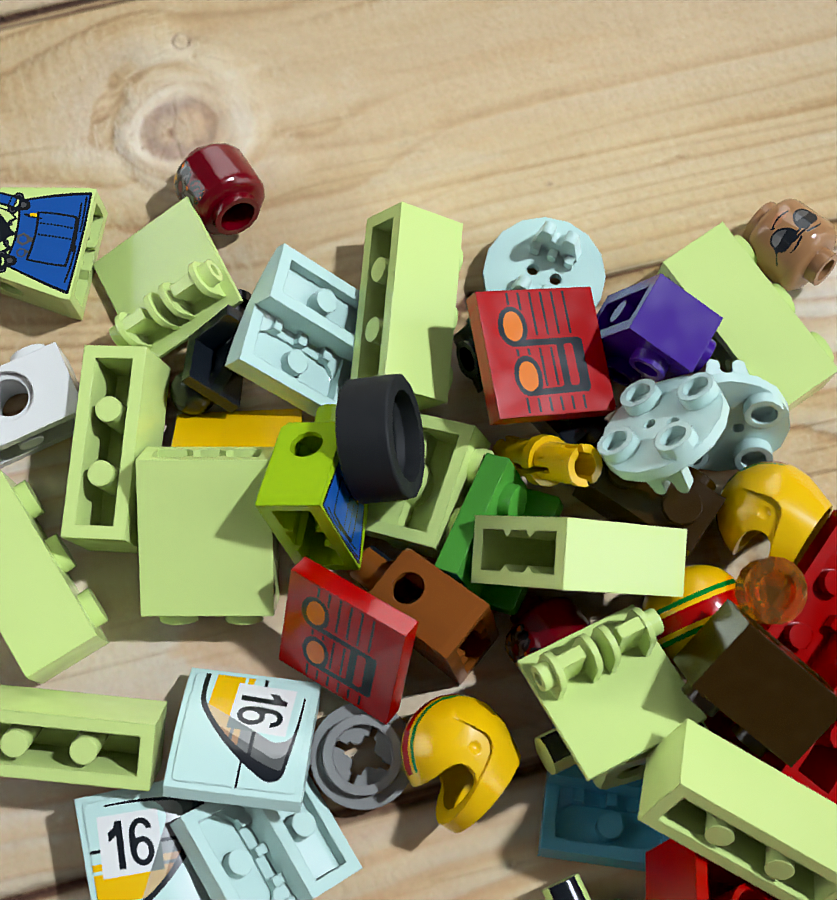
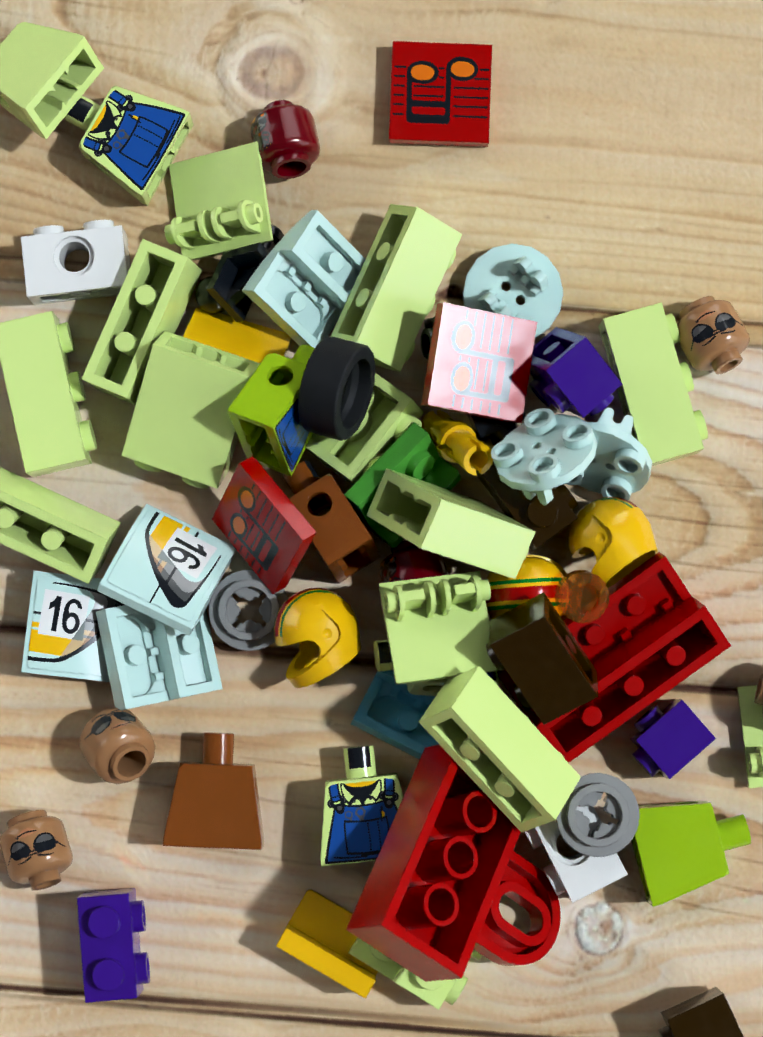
camera: 20 degrees right, 10 degrees up
(380, 89) = (440, 94): none -> red tile

